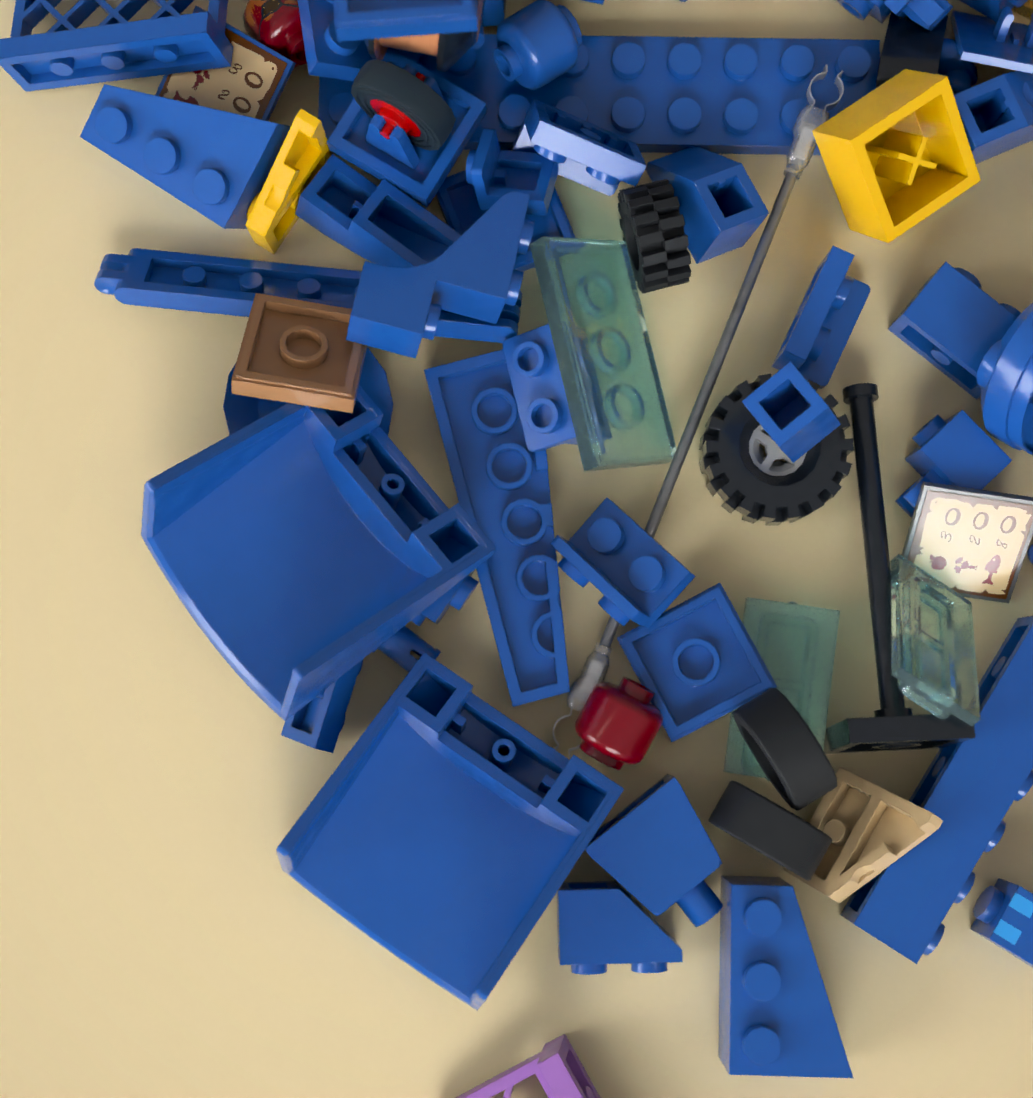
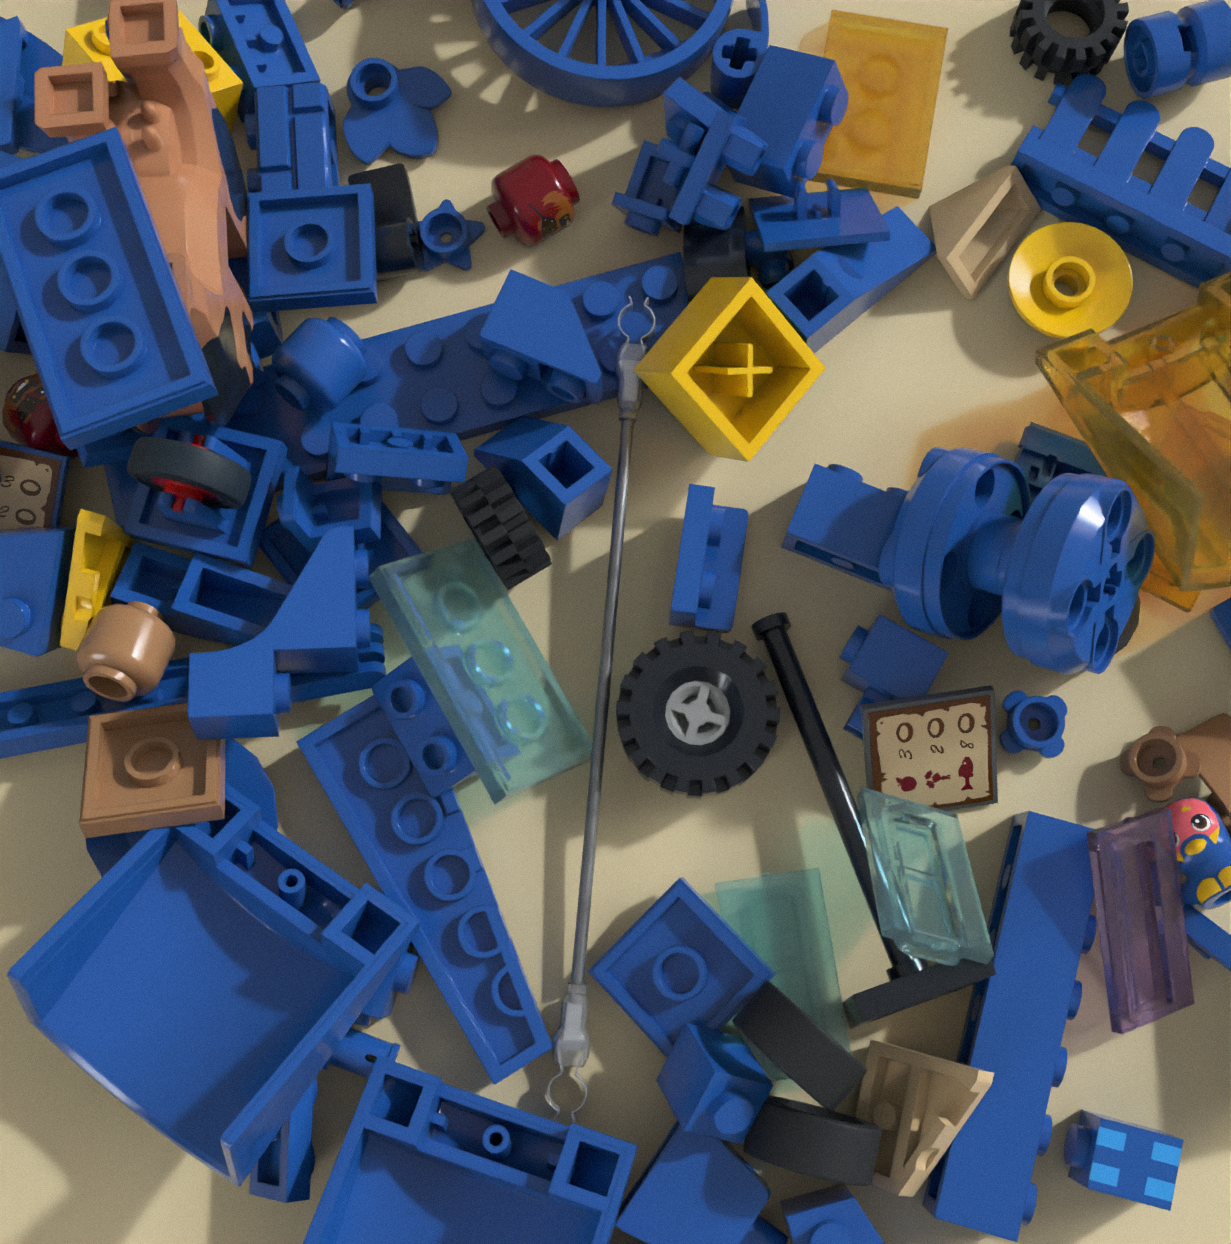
camera: 10 degrees left, 5 degrees down
(301, 246) = (125, 651): none -> medium nougat head
(618, 723) = (614, 1068): dark red head -> none
(624, 565) = (568, 893): blue bracket -> none
(701, 759) = (713, 1084): none -> blue brick
(740, 80) = (540, 336): none -> blue slope
(791, 412) = (694, 677): blue brick -> none

